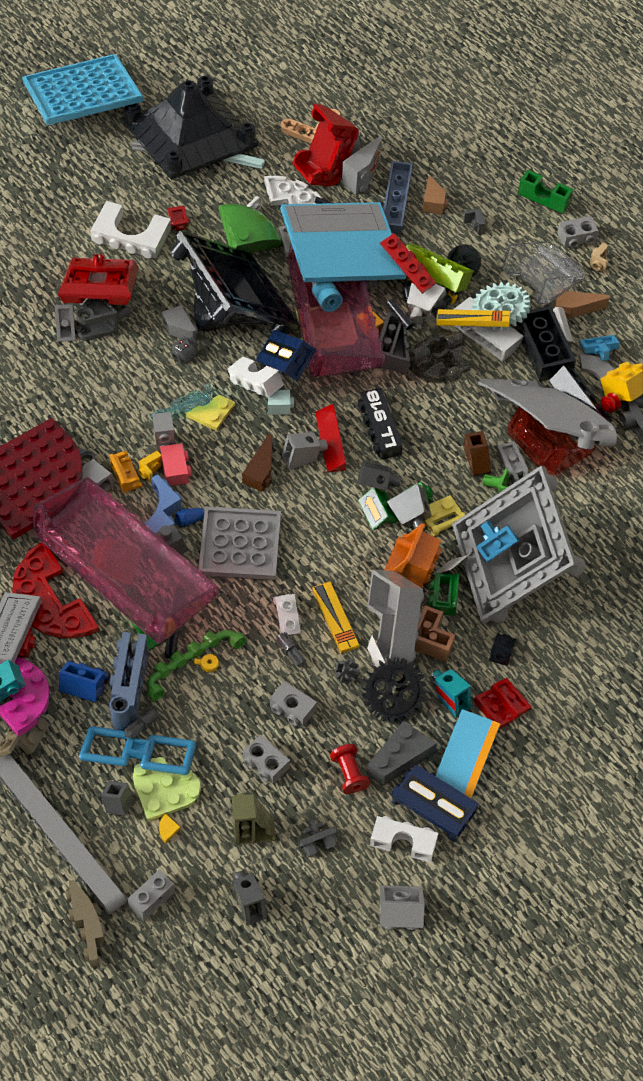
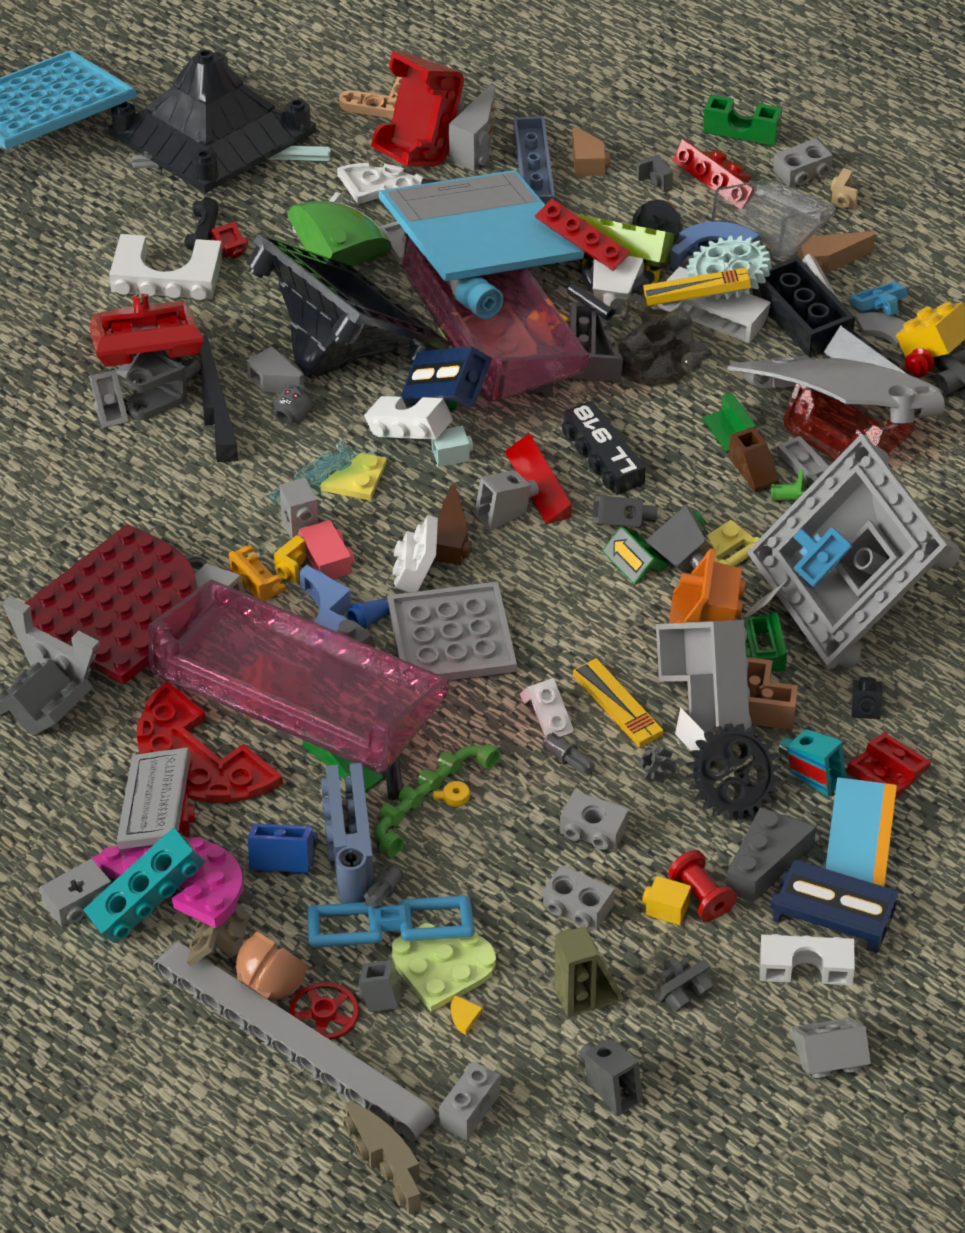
camera: 10 degrees left, 10 degrees down
(47, 770) = (267, 969): none -> nougat piece
(78, 805) = (325, 1009): none -> red wheel
(132, 341) = (215, 407): none -> black slope
(170, 193) = (208, 210): none -> black piece
(230, 482) = (415, 555): none -> white plate
(324, 774) = (667, 900): none -> yellow brick
(470, 420) = (728, 421): none -> green panel
(495, 275) = (700, 235): none -> medium blue arch
(515, 223) = (710, 167): none -> red bracket

